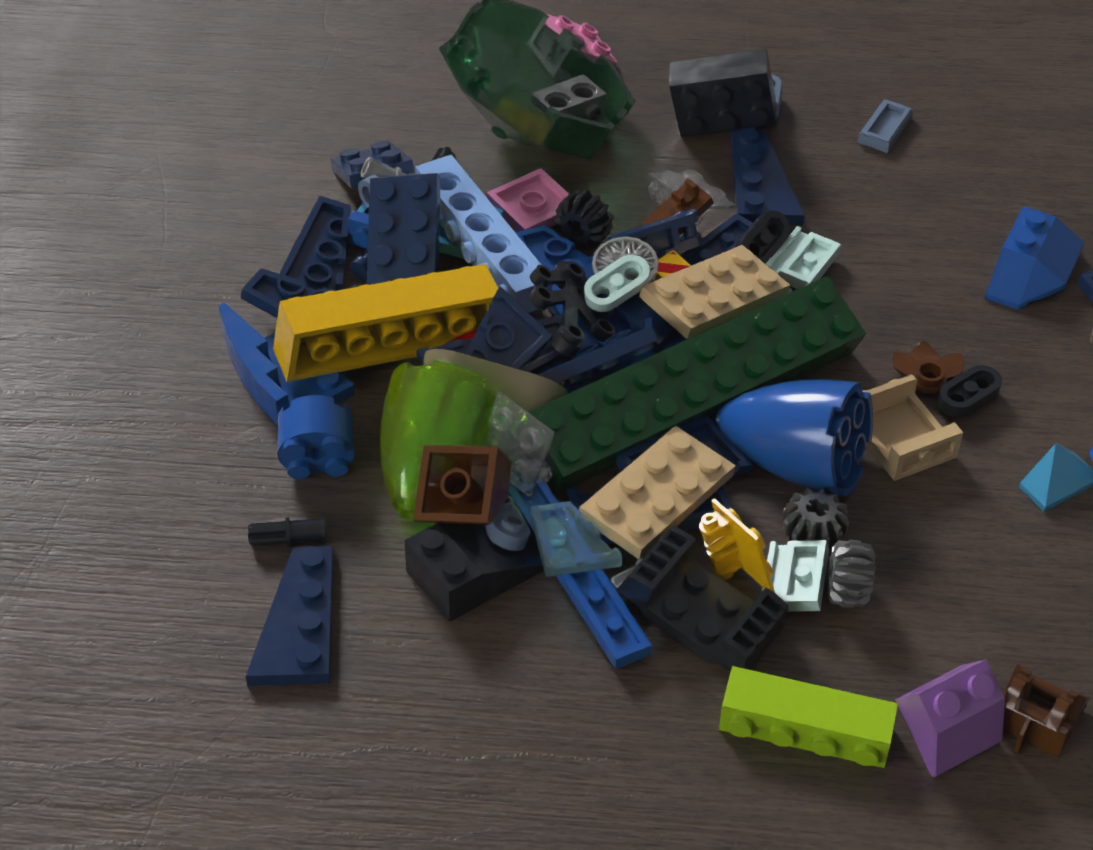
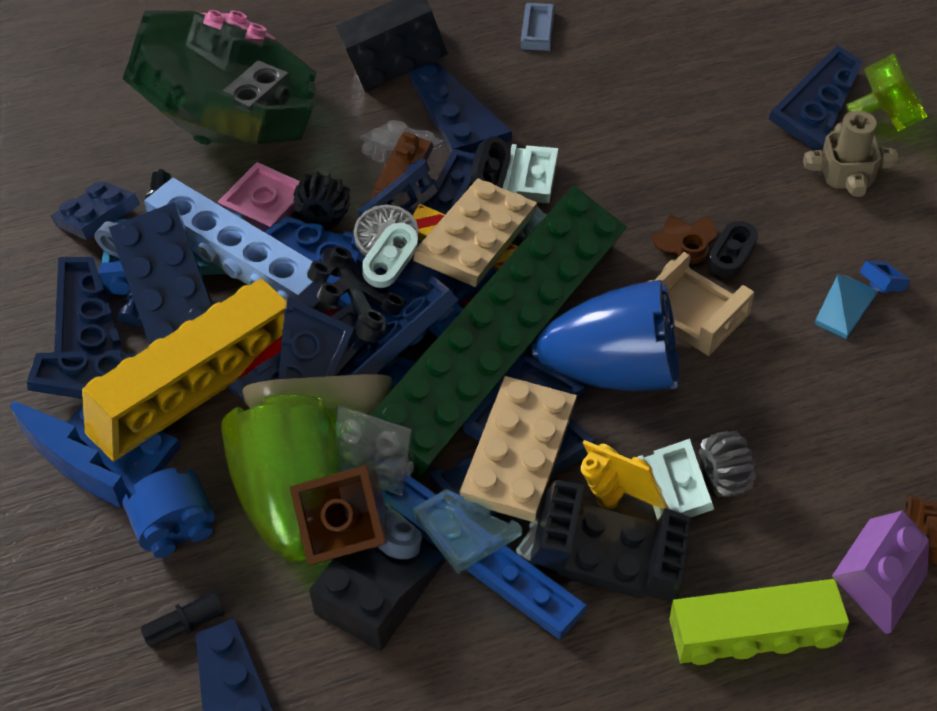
camera: 20 degrees left, 5 degrees up
(373, 167) = (103, 214): light grey pin -> none
(815, 517) = (666, 420): flat silver gear -> none
(1034, 260) = (724, 110): blue wedge -> none

